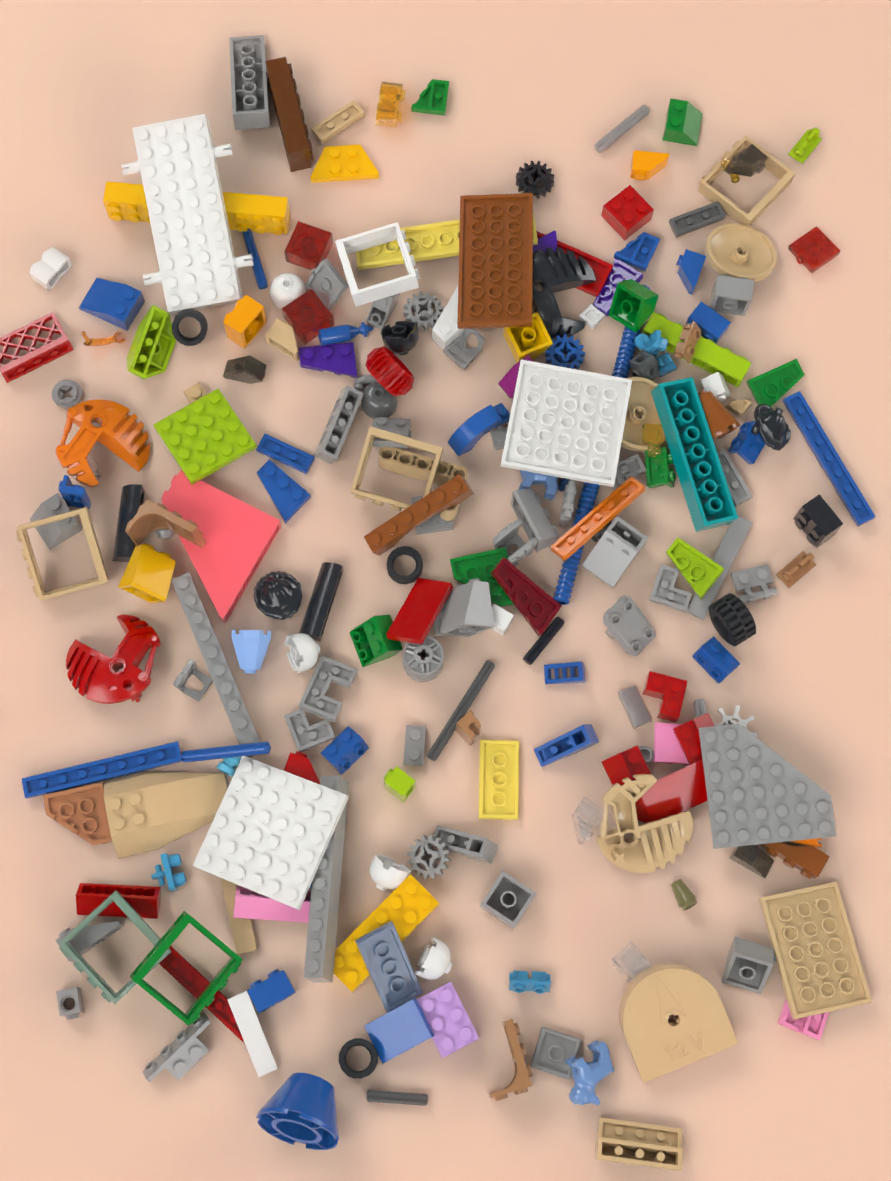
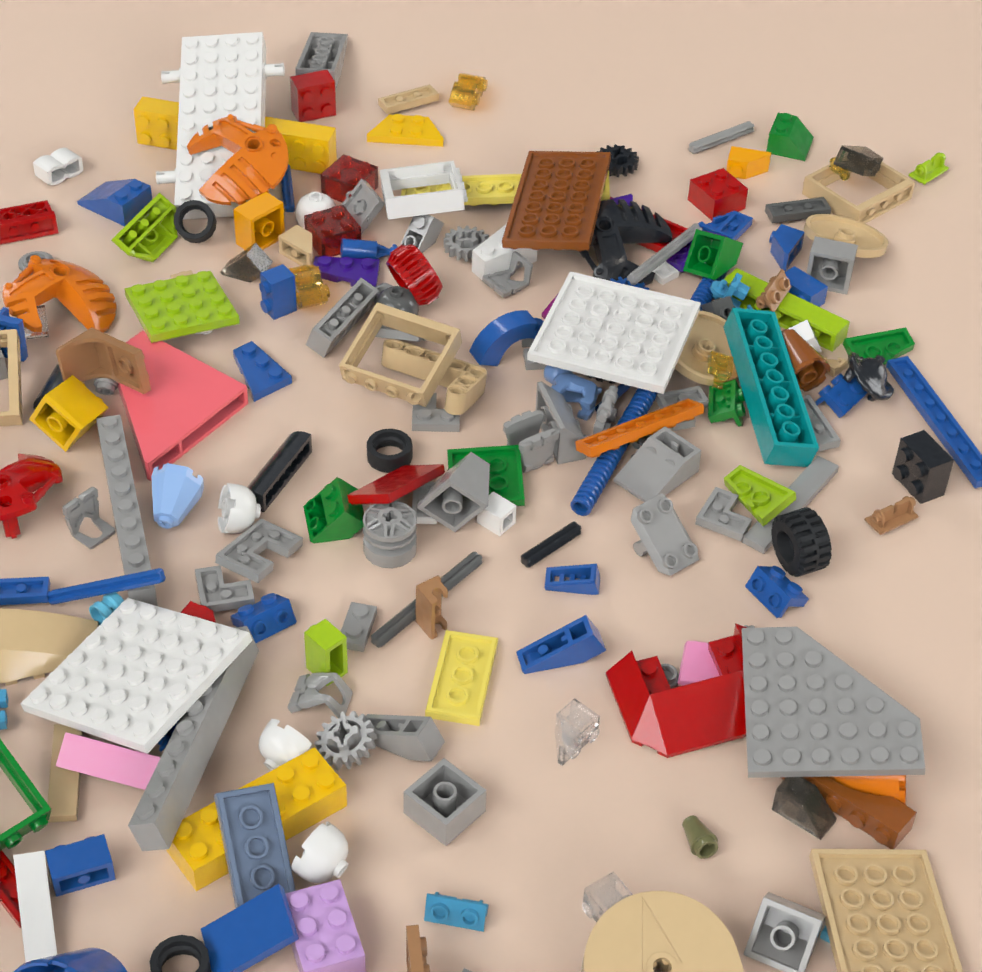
camera: 10 degrees right, 30 degrees down
(101, 341) = (111, 226): clear orange piece -> none
(226, 277) = (255, 167): none -> orange piece
(254, 140) = (313, 95): none -> red brick
(278, 595) = (223, 454): black piece -> none
(280, 405) = (278, 292): none -> blue brick
(285, 453) = (273, 341): blue tile -> none
(289, 114) = (357, 83): reddish brown brick -> none
(300, 388) = (309, 286): none -> clear yellow brick
(392, 817) = (308, 695): none -> light grey piece
(401, 337) = (439, 256): black cylinder -> none
(433, 98) = (516, 95): green wing -> none
(442, 498) = (456, 374): dark orange arch -> none
(528, 340) = (583, 262): yellow slope -> none
(528, 597) = (539, 495): dark red wing -> none
(592, 304) = (663, 255): none -> light grey axle
(634, 707) = (659, 625): light grey slope -> none
(651, 842) = (663, 763): tan piece -> none
(669, 690) = (704, 608): red brick -> none
(751, 578) = (841, 523): light grey plate -> none
(814, 249) = (933, 248): clear red plate -> none

